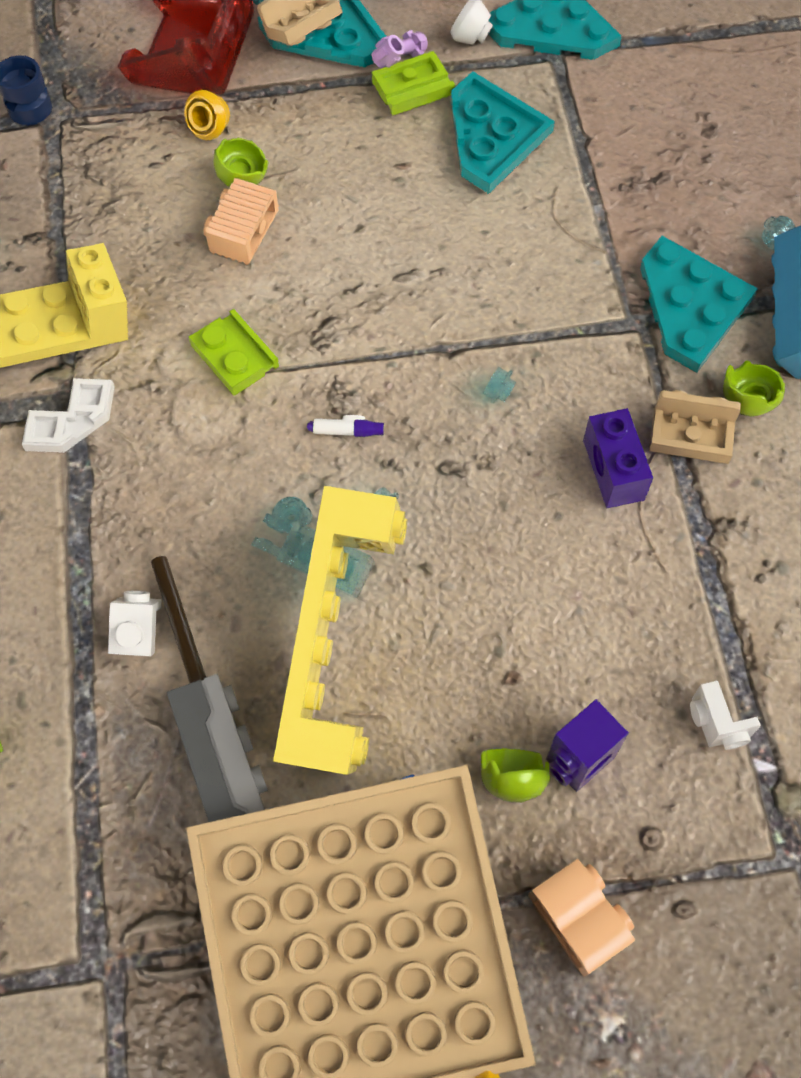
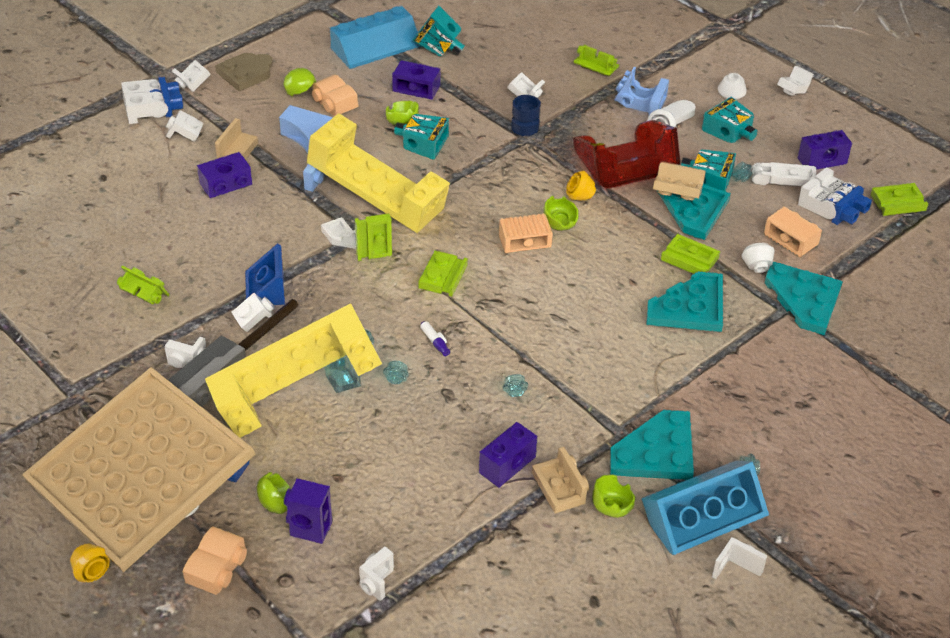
camera: 55 degrees right, 20 degrees down
(81, 571) = (267, 277): none -> blue slope
(120, 390) = (373, 237): none -> lime plate
(154, 767) = (180, 354): none -> white bracket
(392, 47) = (697, 230): lavender bar -> none

